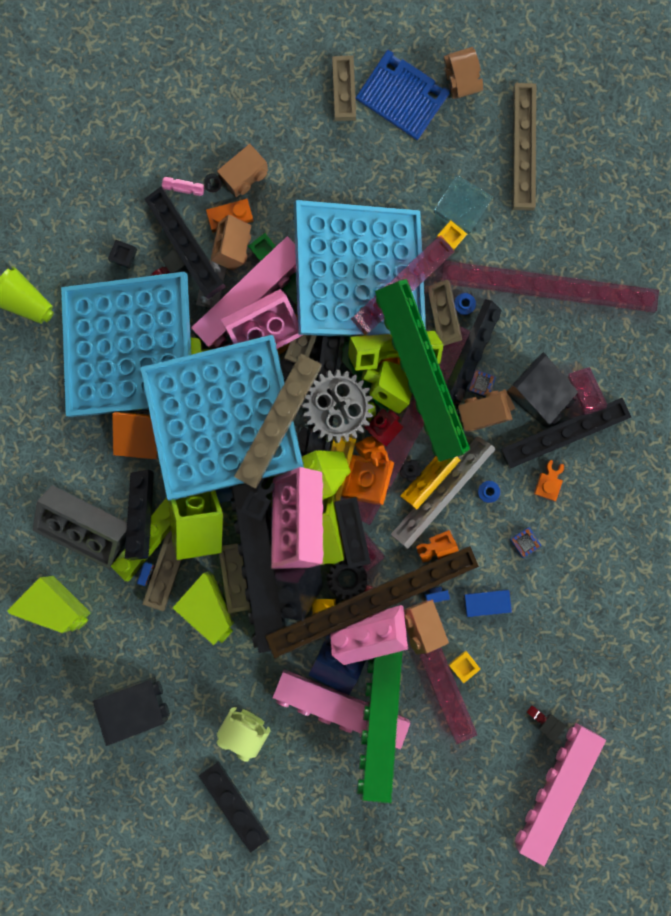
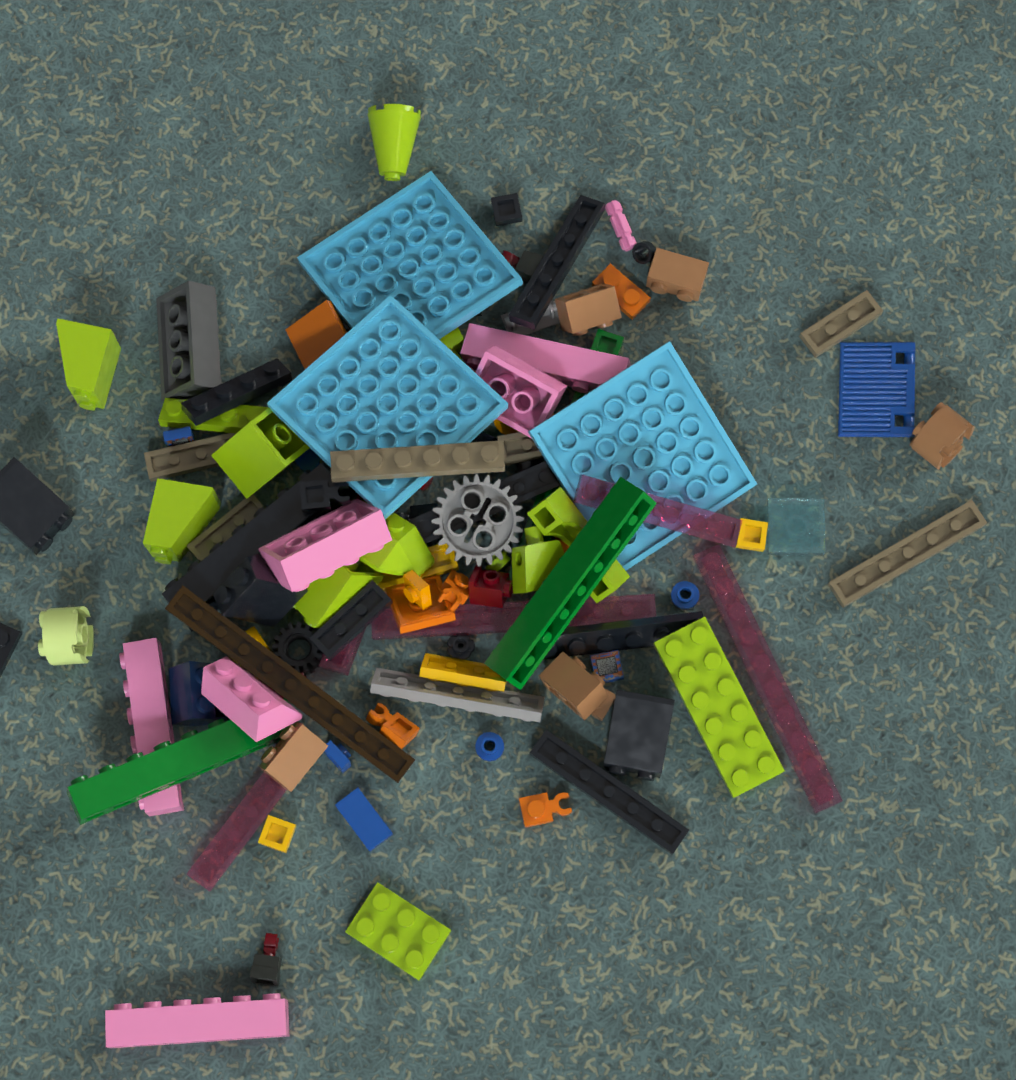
camera: 60 degrees right, 10 degrees down
(360, 476) = (417, 590): none -> light orange plate
(444, 312) = (657, 576): dark tan plate -> none
(525, 542) = (457, 821): tile -> none
(553, 328) = (718, 707): none -> lime plate
(574, 624) = (398, 931): none -> lime plate
(588, 393) = (671, 786): clear pink plate -> none

